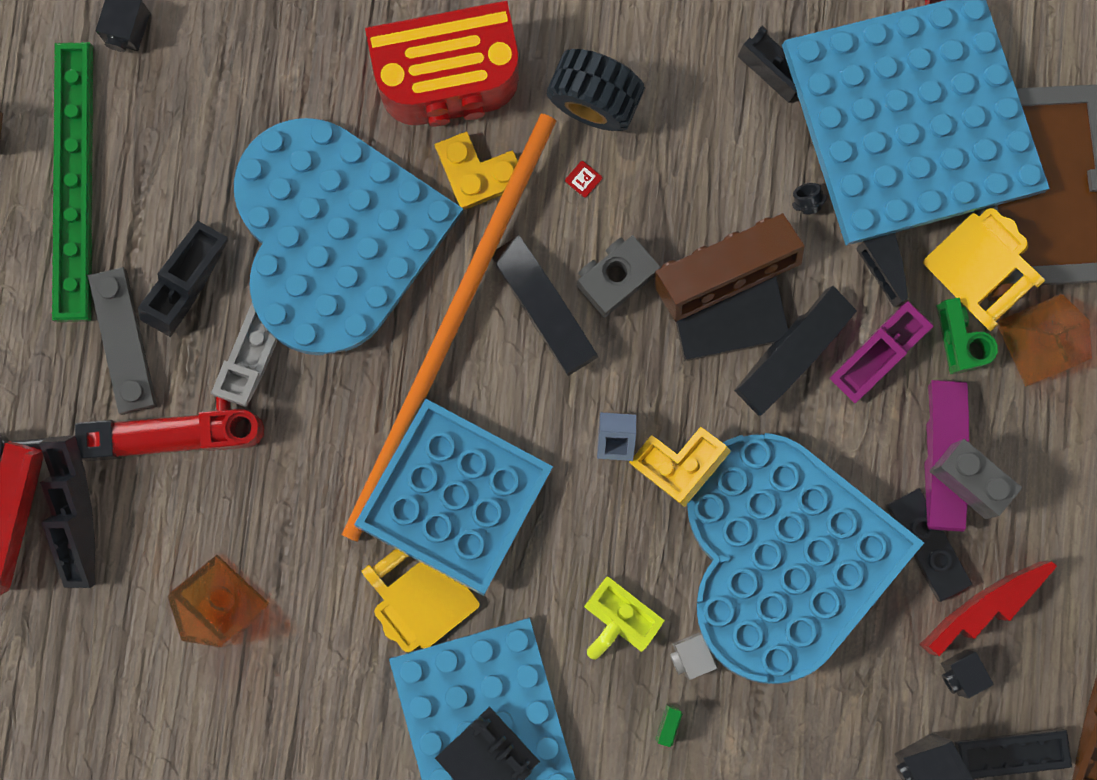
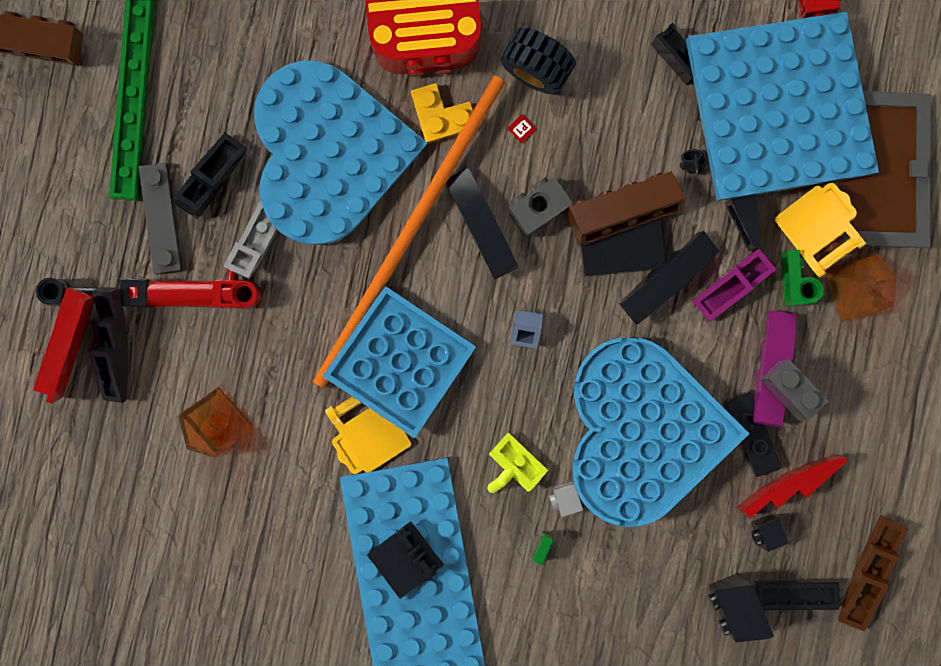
camera: 10 degrees right, 5 degrees up
(681, 473) = (574, 361): yellow plate -> none

